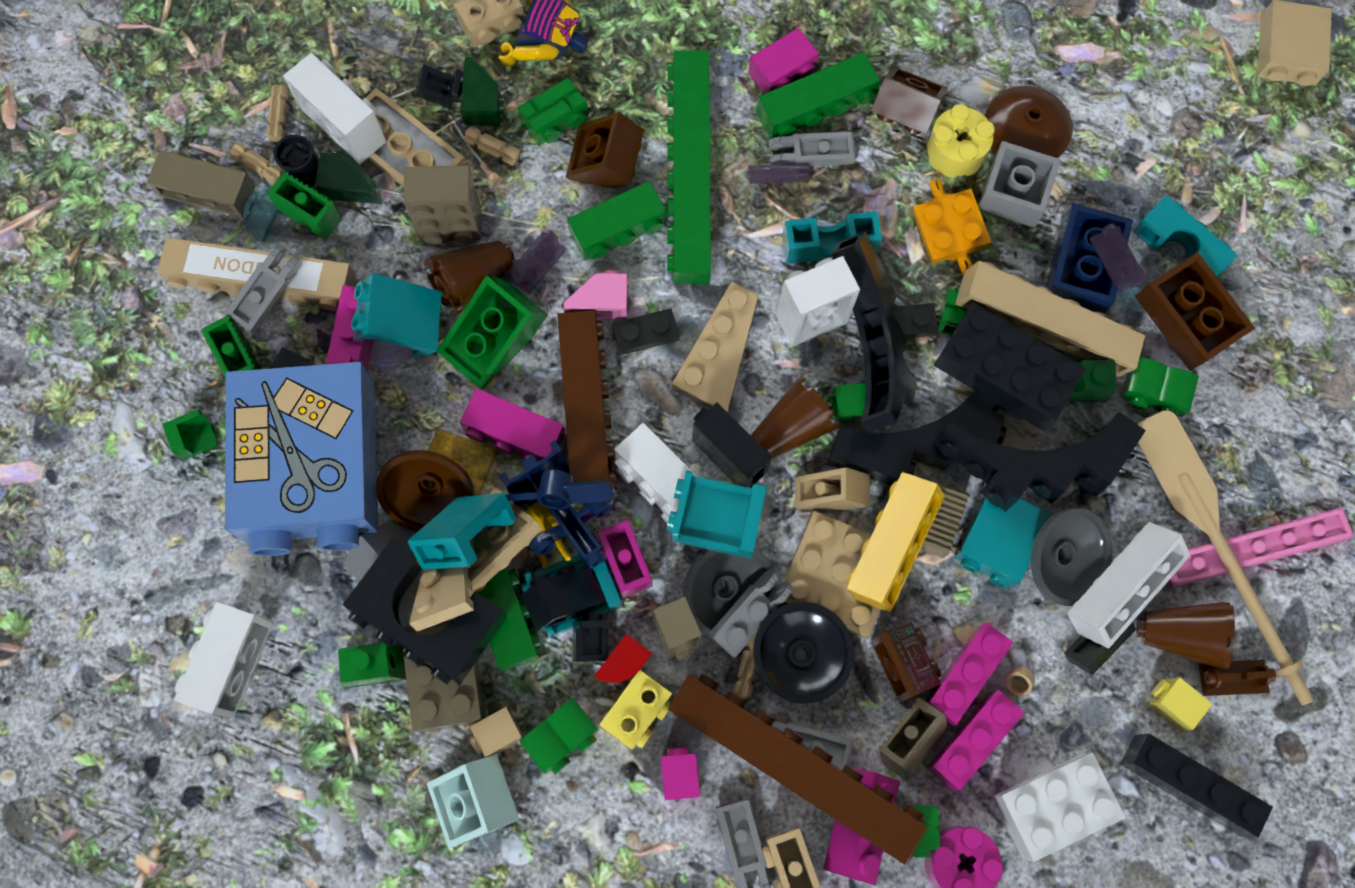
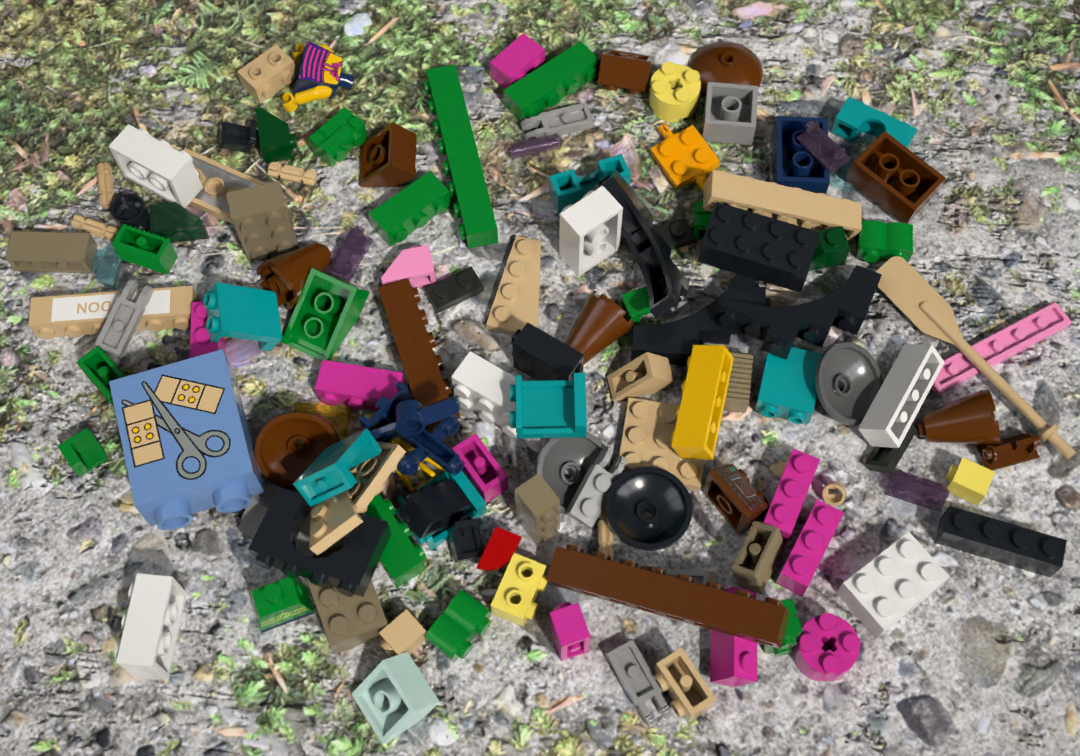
camera: 10 degrees left, 10 degrees down
(1127, 706) = (923, 493): none -> clear purple hinge

